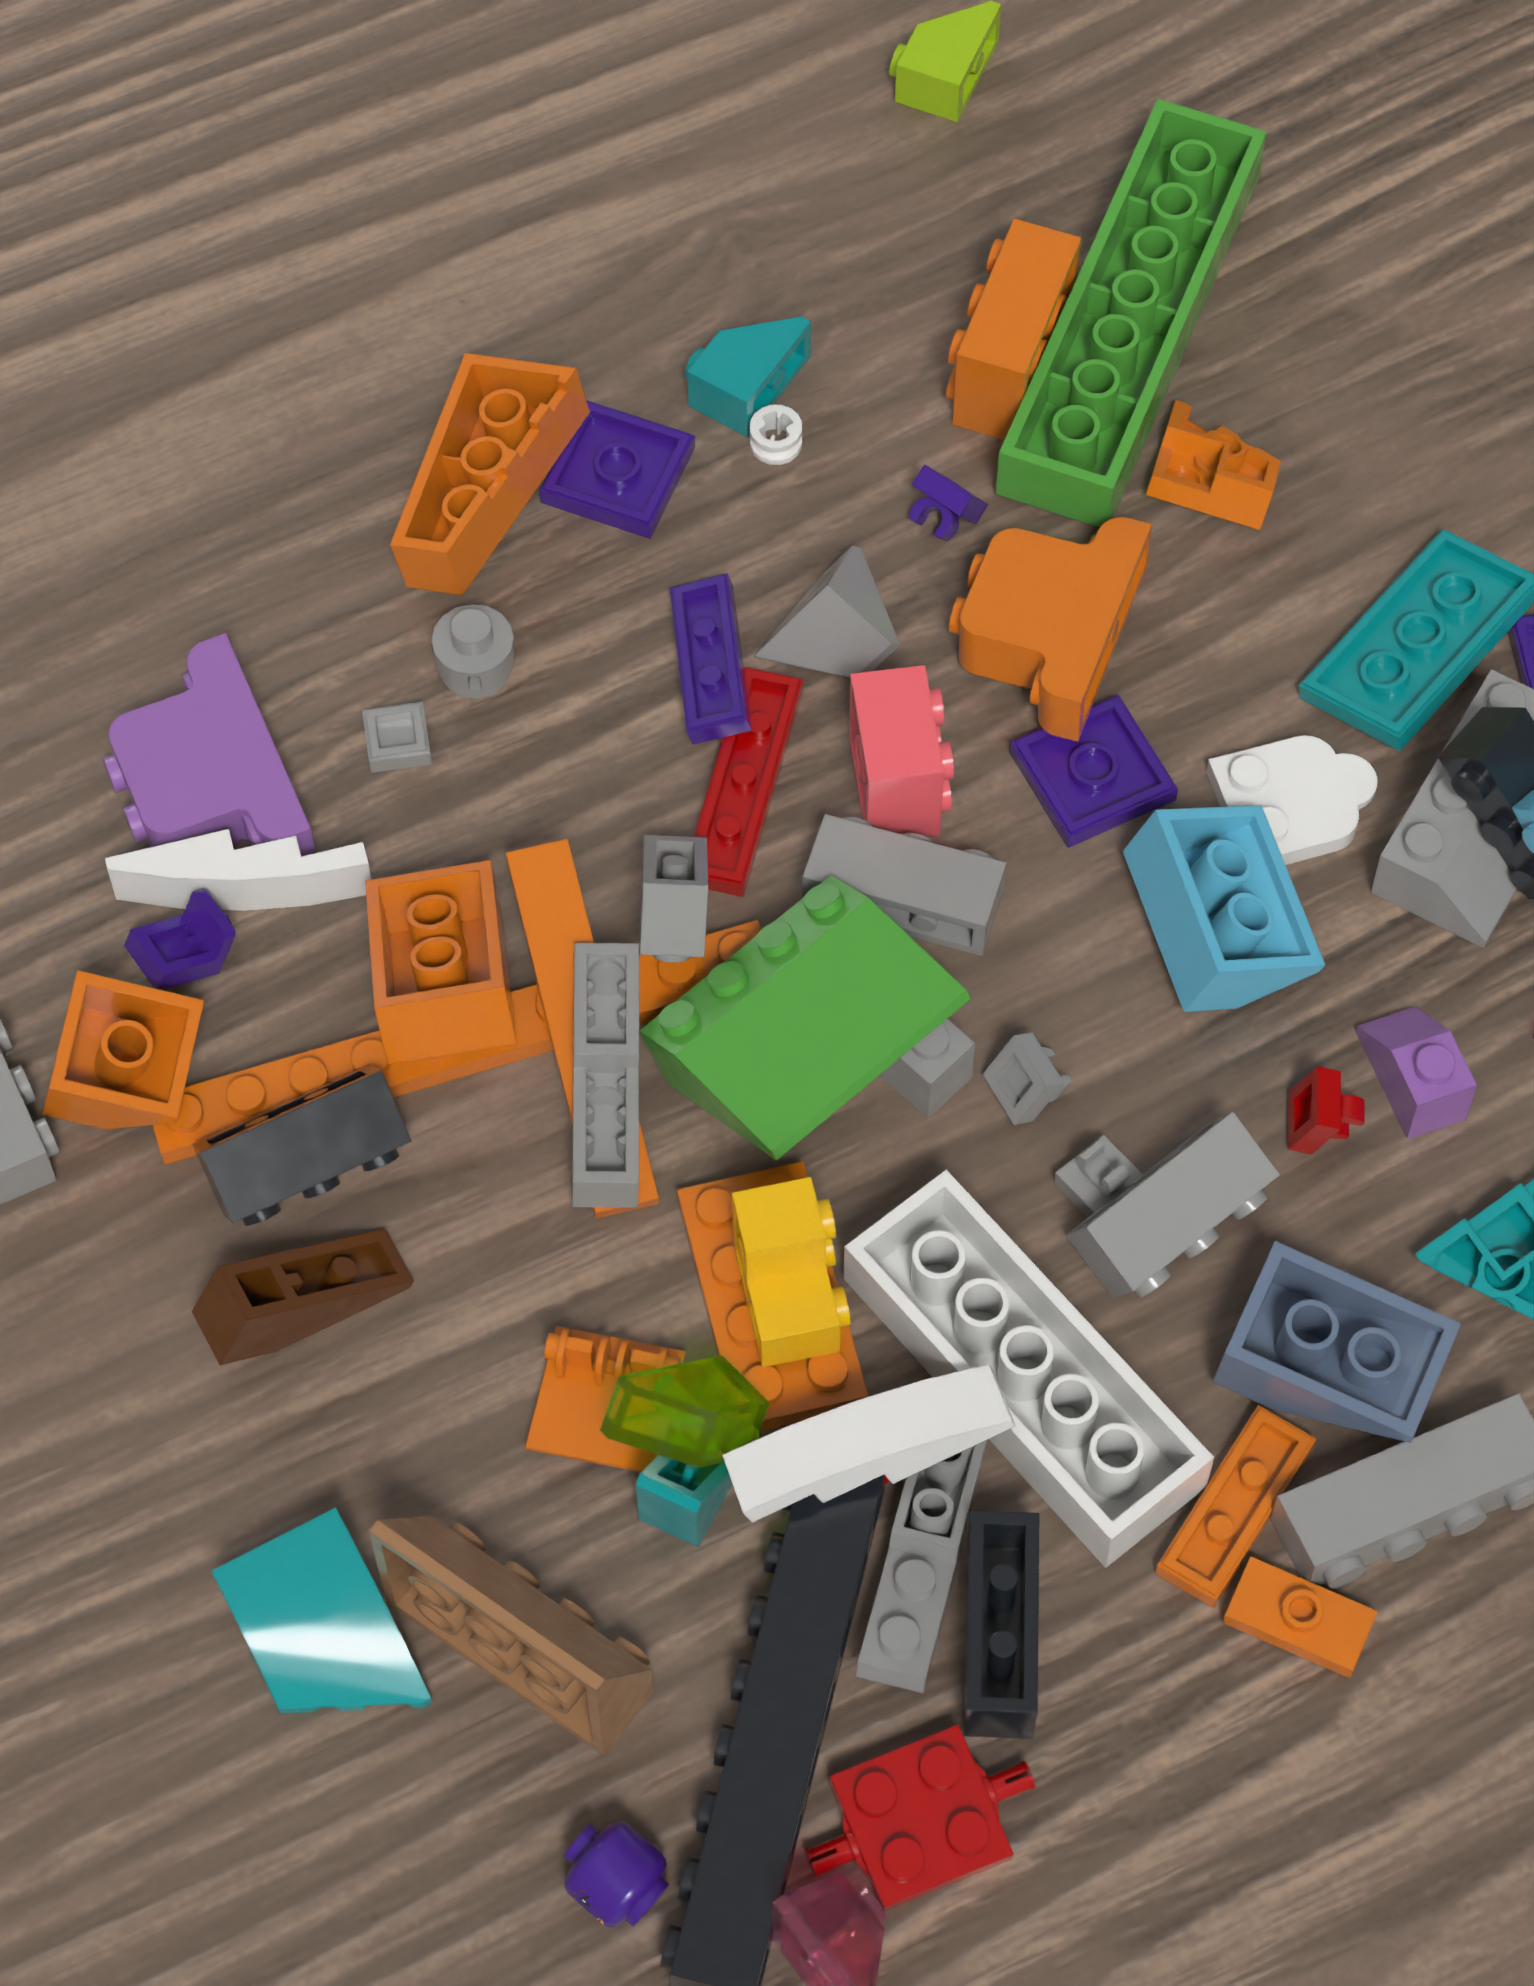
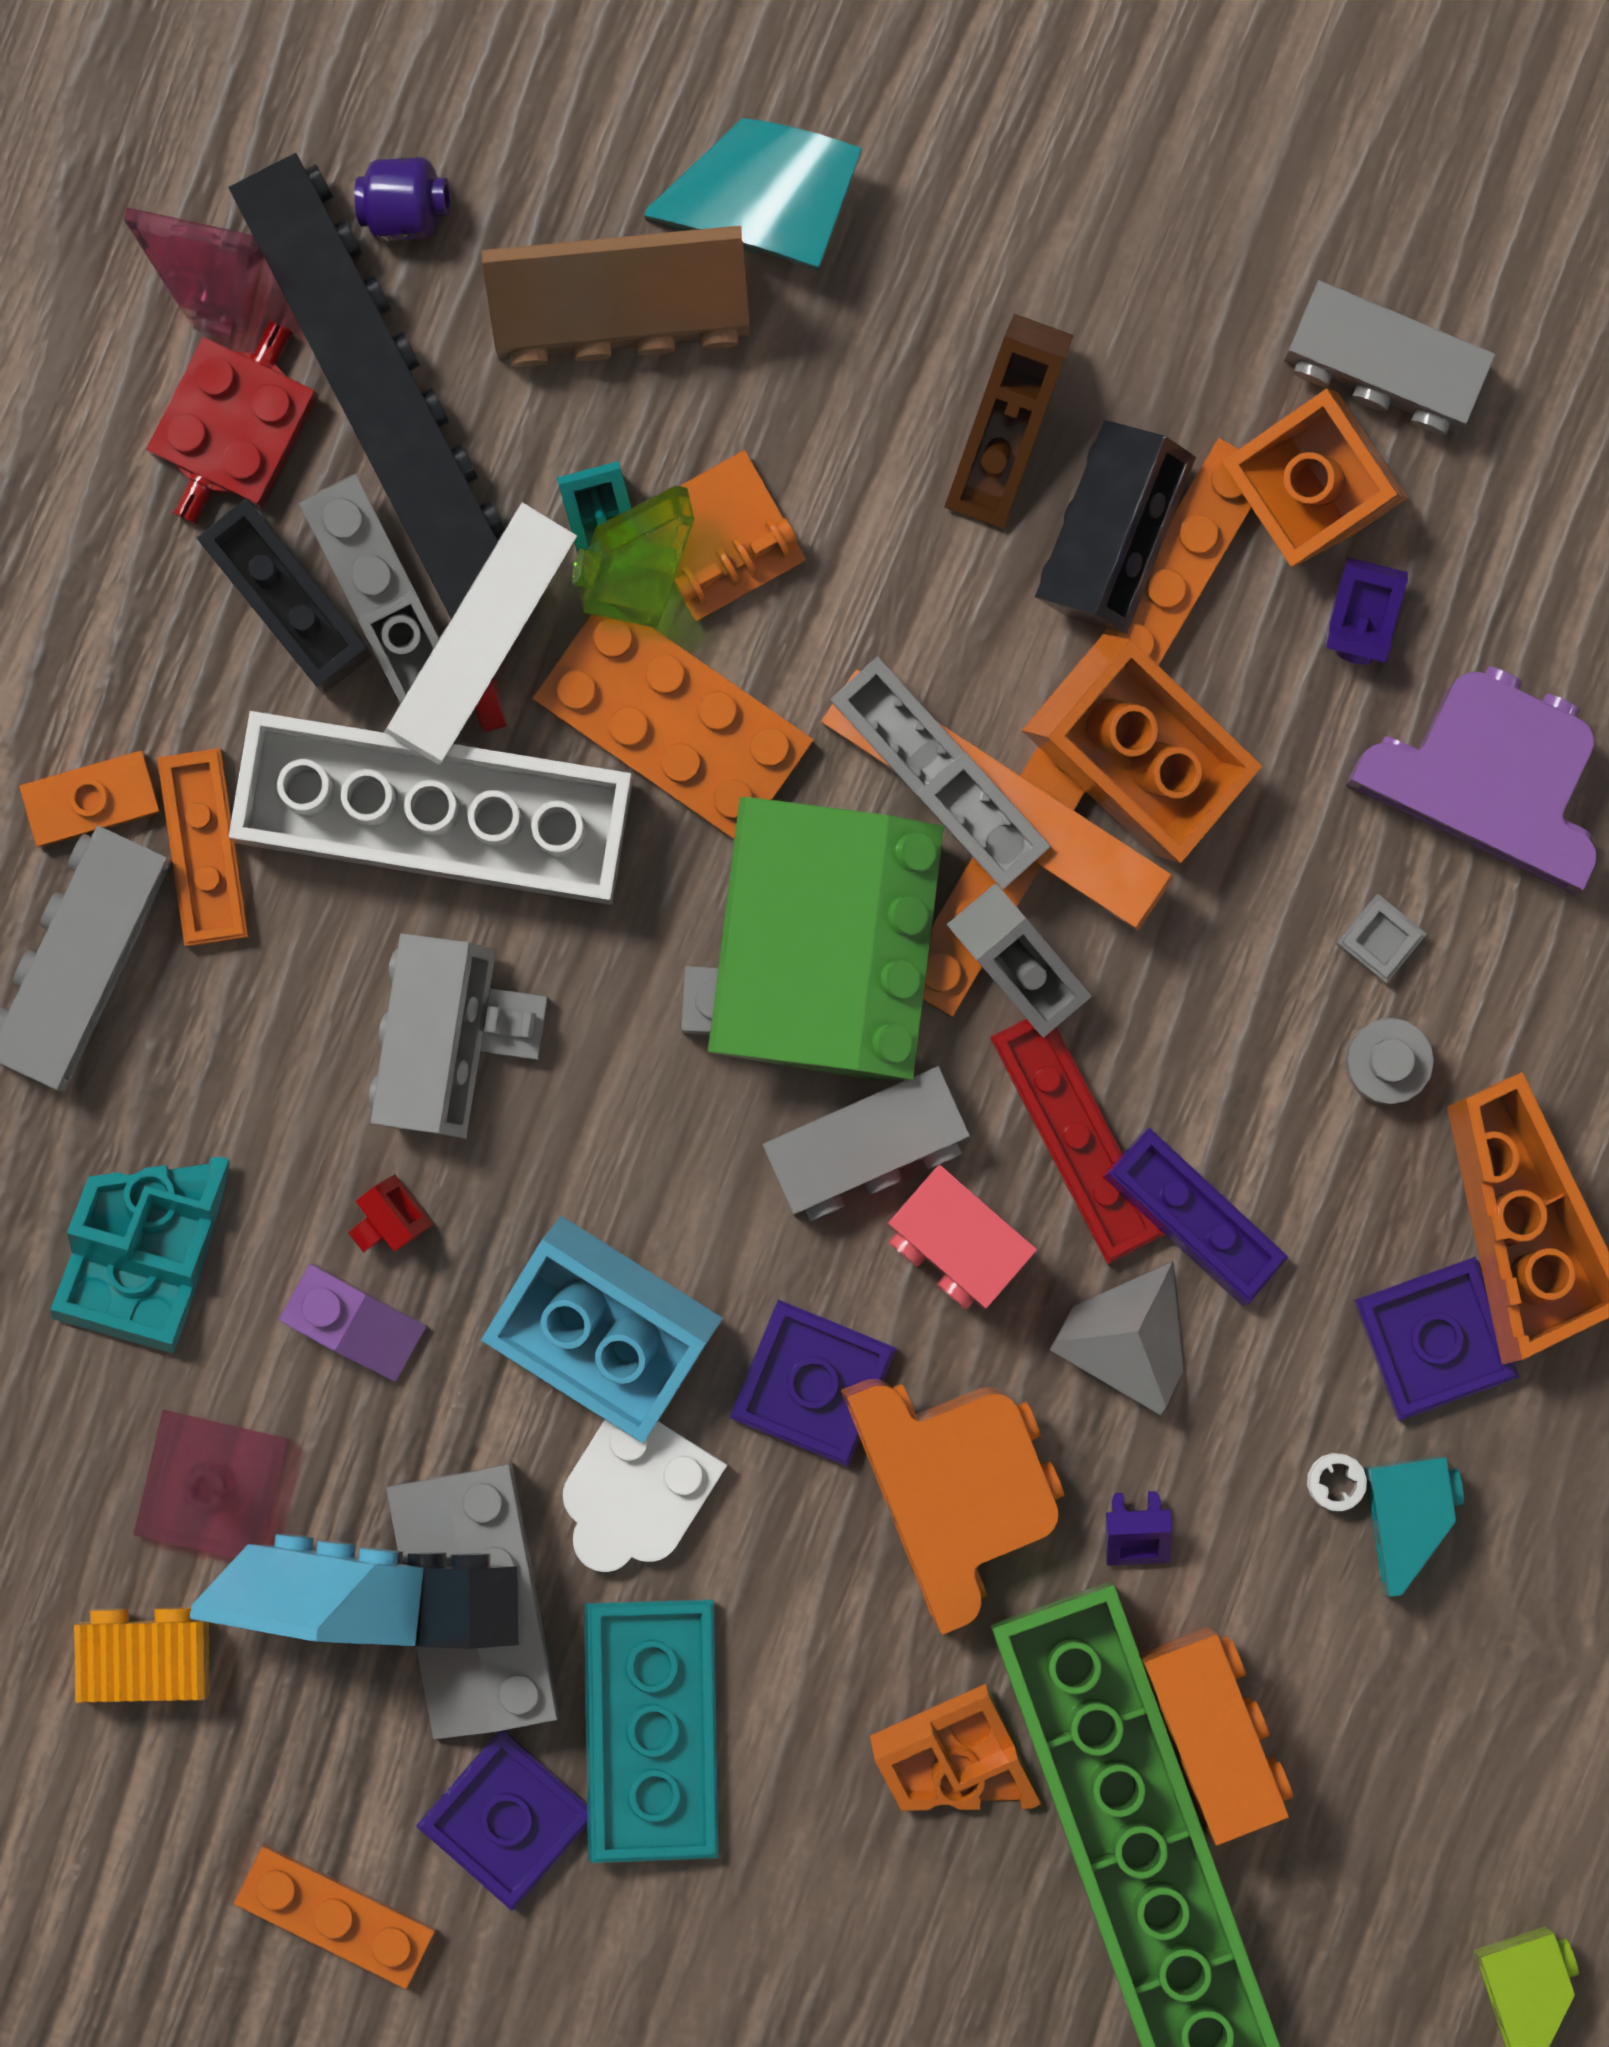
camera: 135 degrees right, 25 degrees up
(238, 879) = (1396, 695): white slope -> none
(783, 1263) = (652, 714): yellow brick -> none
(1025, 1078) = (632, 1052): light grey tile -> none
(1335, 1348) = (216, 1014): sand blue slope -> none

